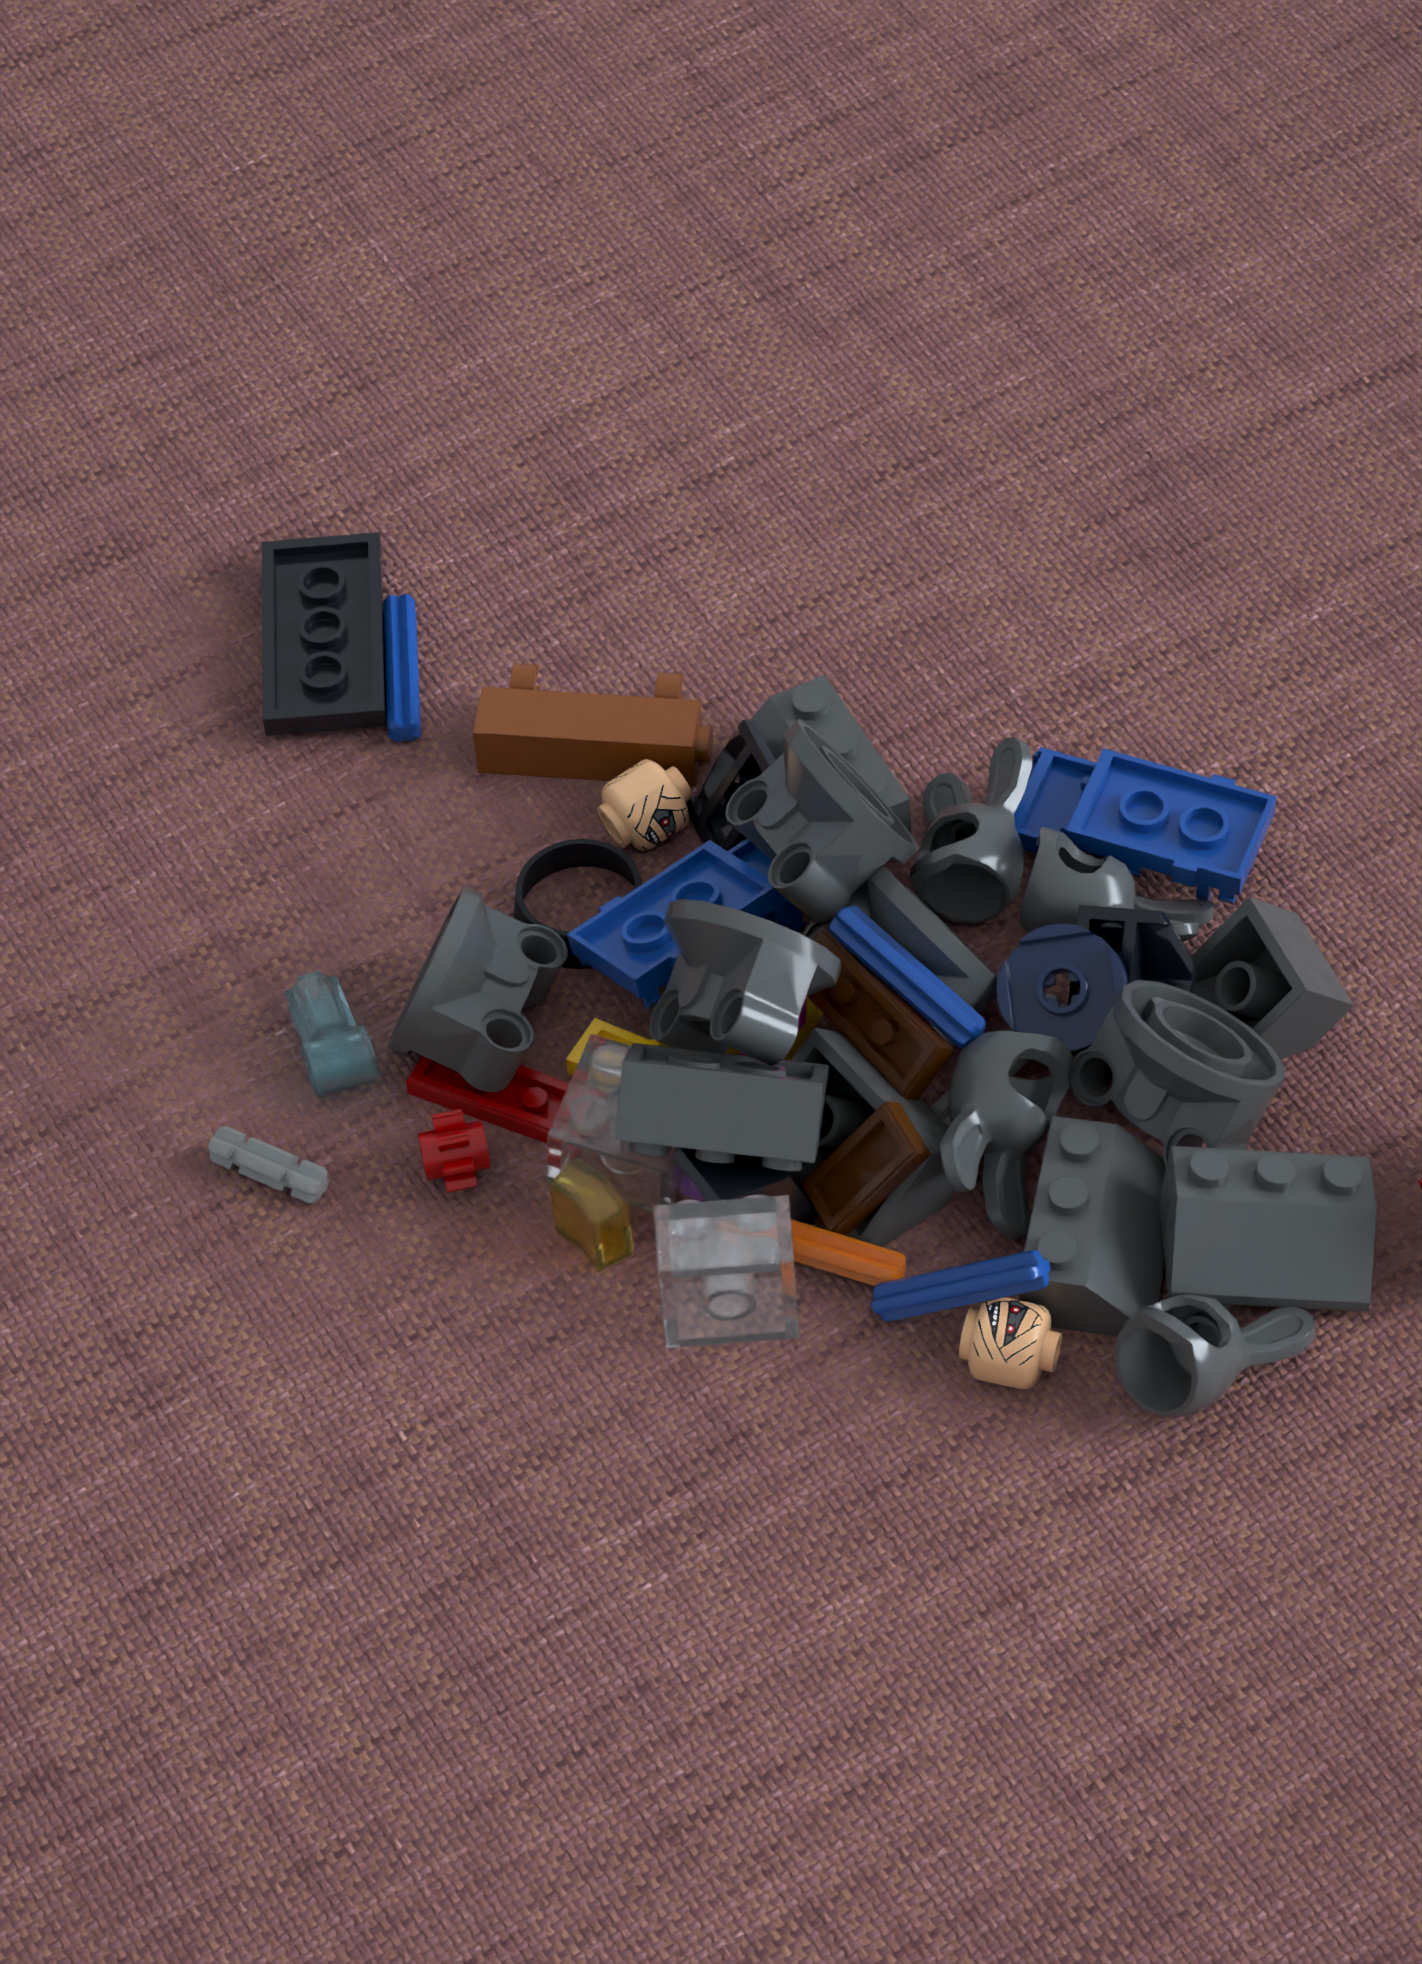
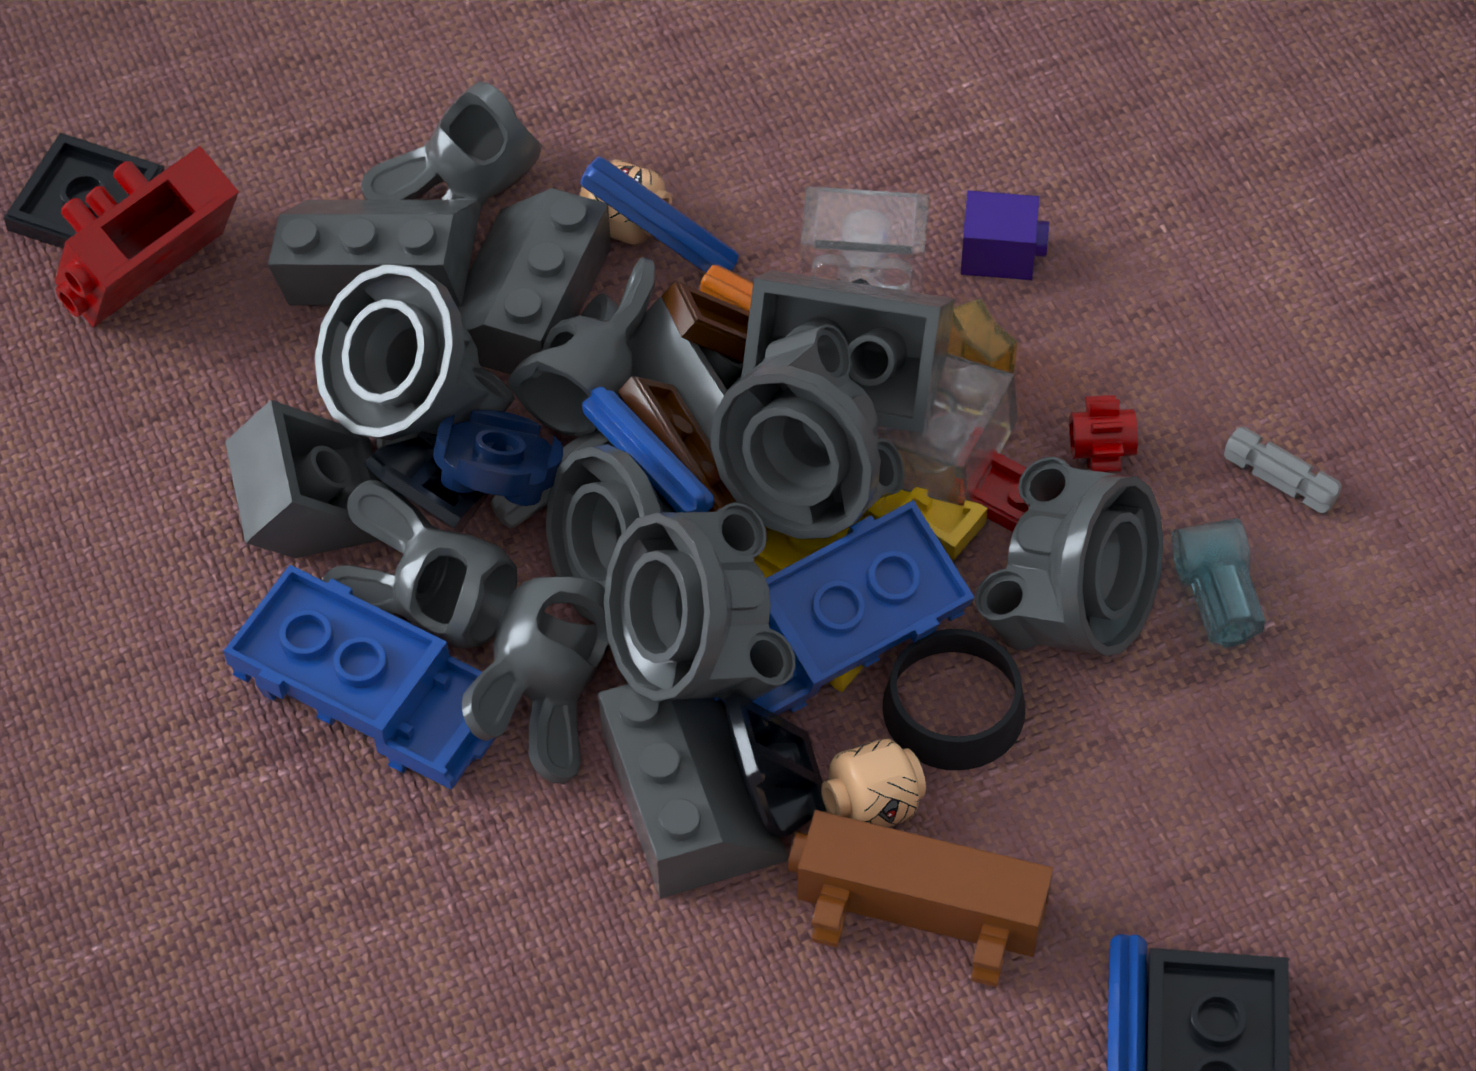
camera: 175 degrees left, 5 degrees up
(580, 1359) = (1002, 235): none -> dark purple brick

